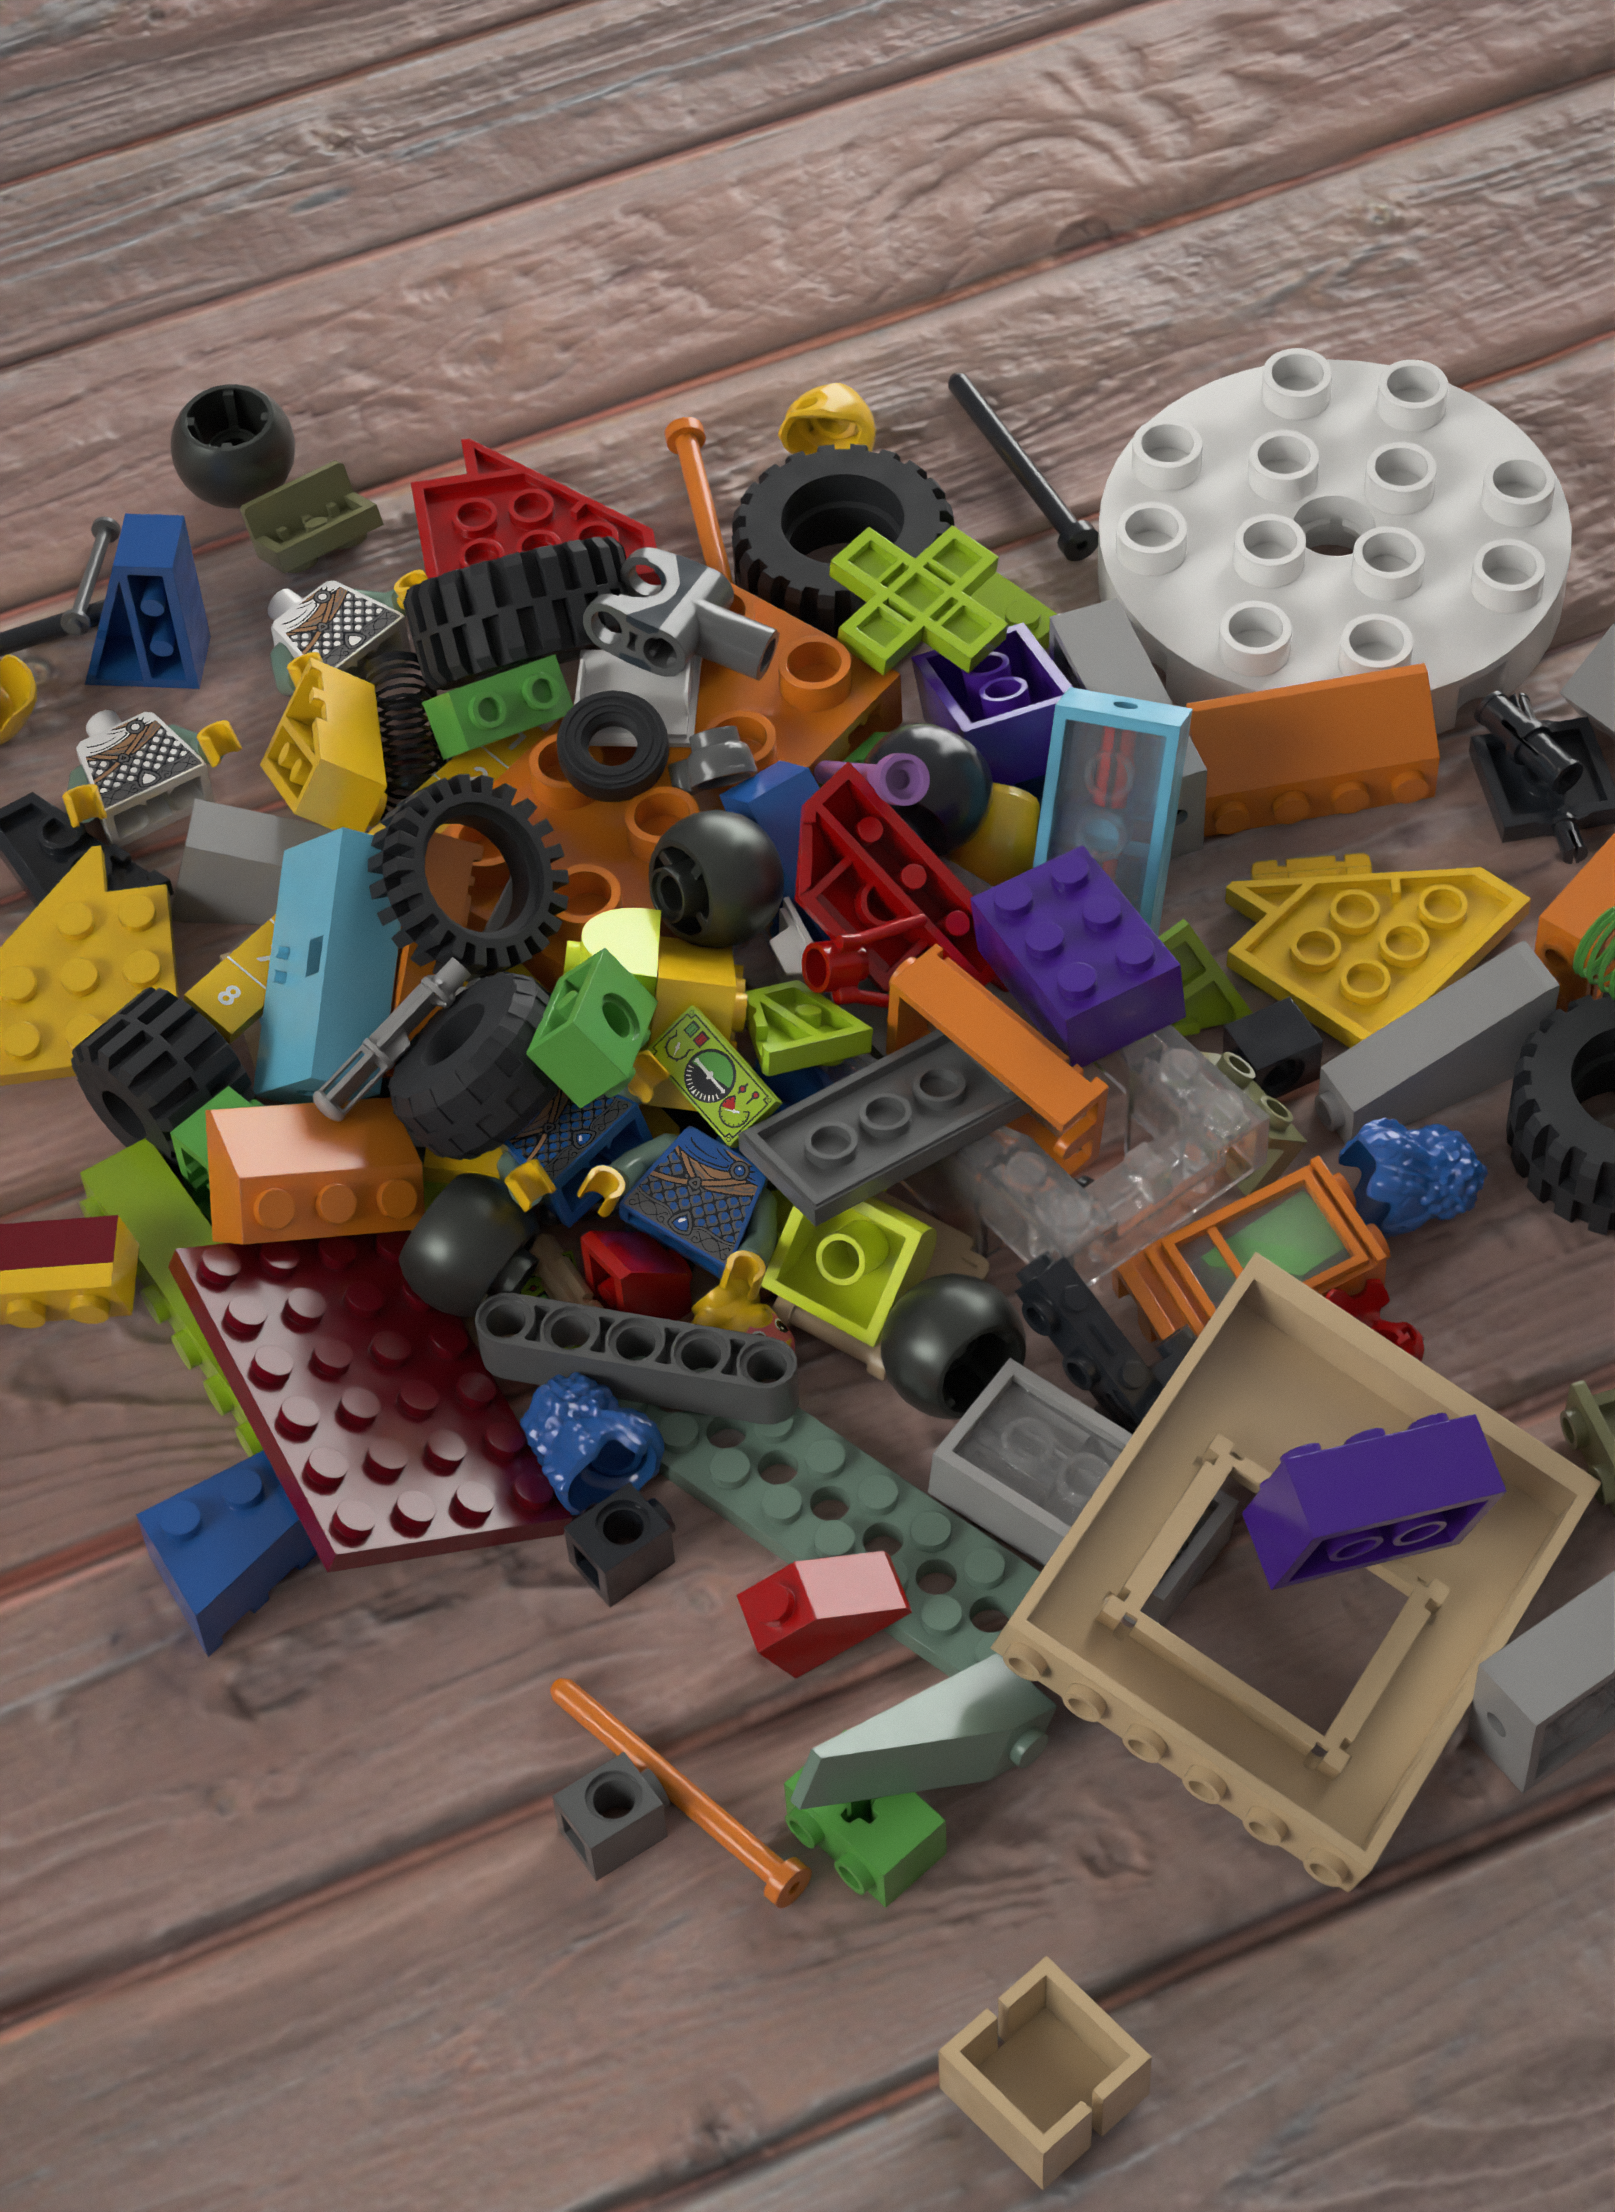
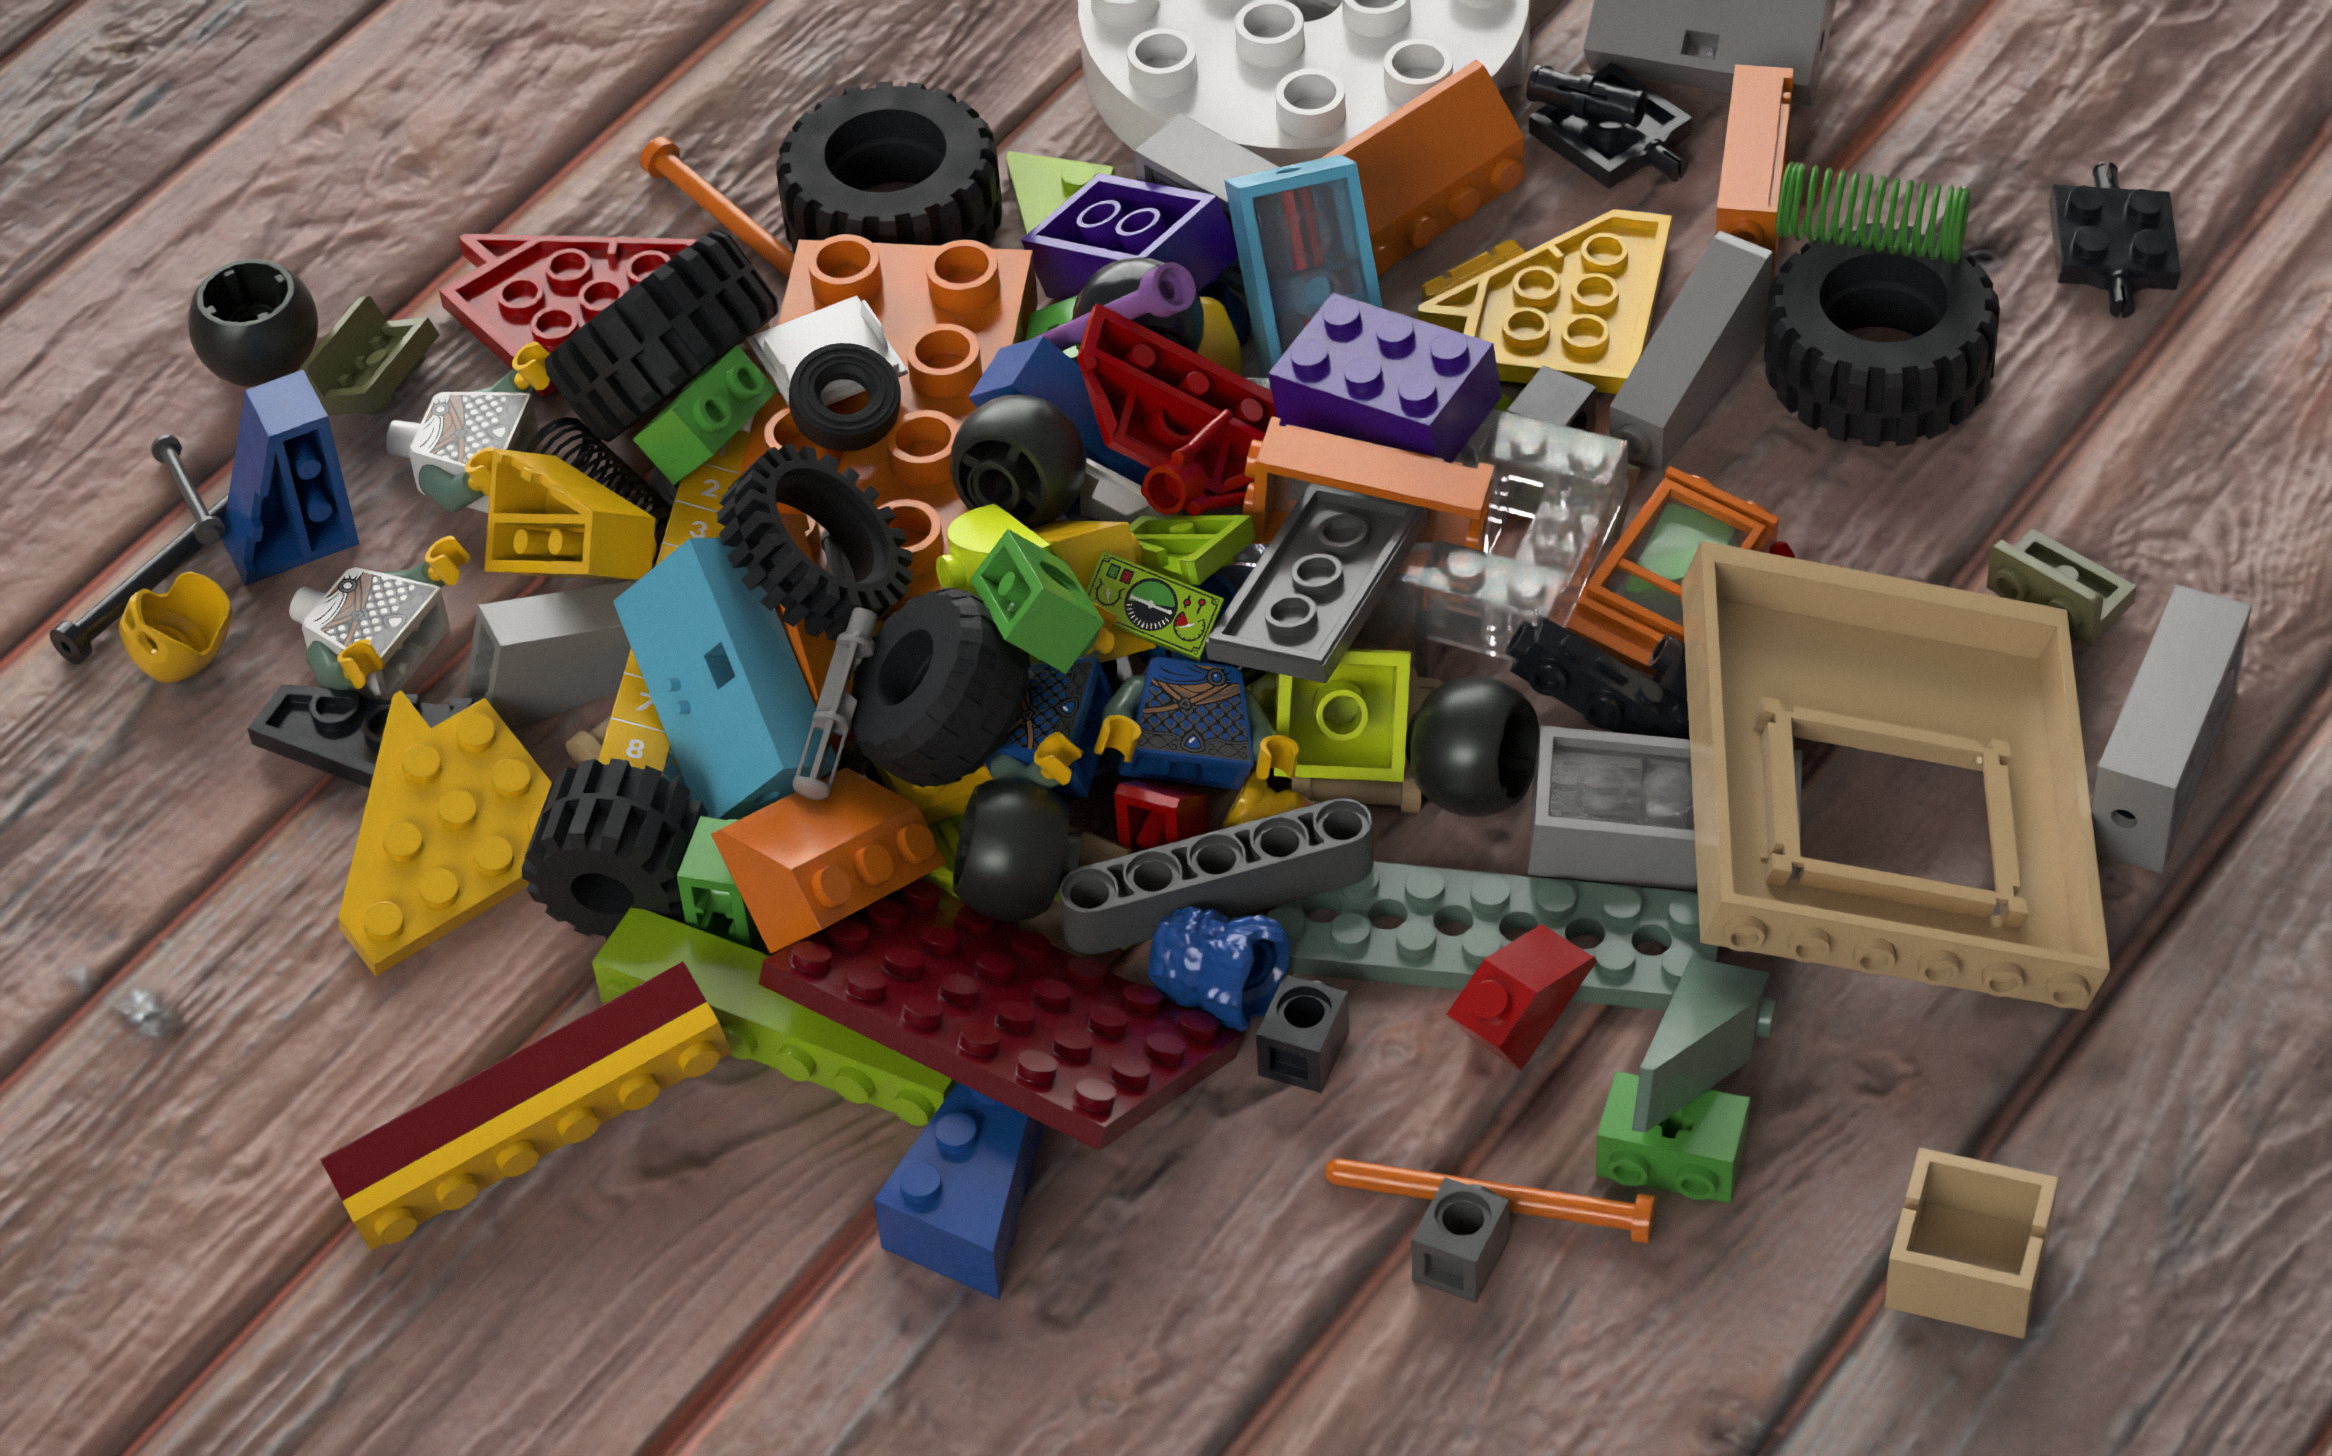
camera: 30 degrees left, 5 degrees down
(679, 619) = (832, 271): dark grey connector -> none
(715, 761) = (945, 372): dark grey piece -> none
(827, 417) = (789, 89): yellow helmet -> none
(918, 600) = (1010, 182): lime plate -> none
(1076, 538) = (1074, 100): black bar -> none
(1372, 1499) = (1935, 678): dark purple brick -> none
(1412, 1174) = (1744, 452): blue hair -> none

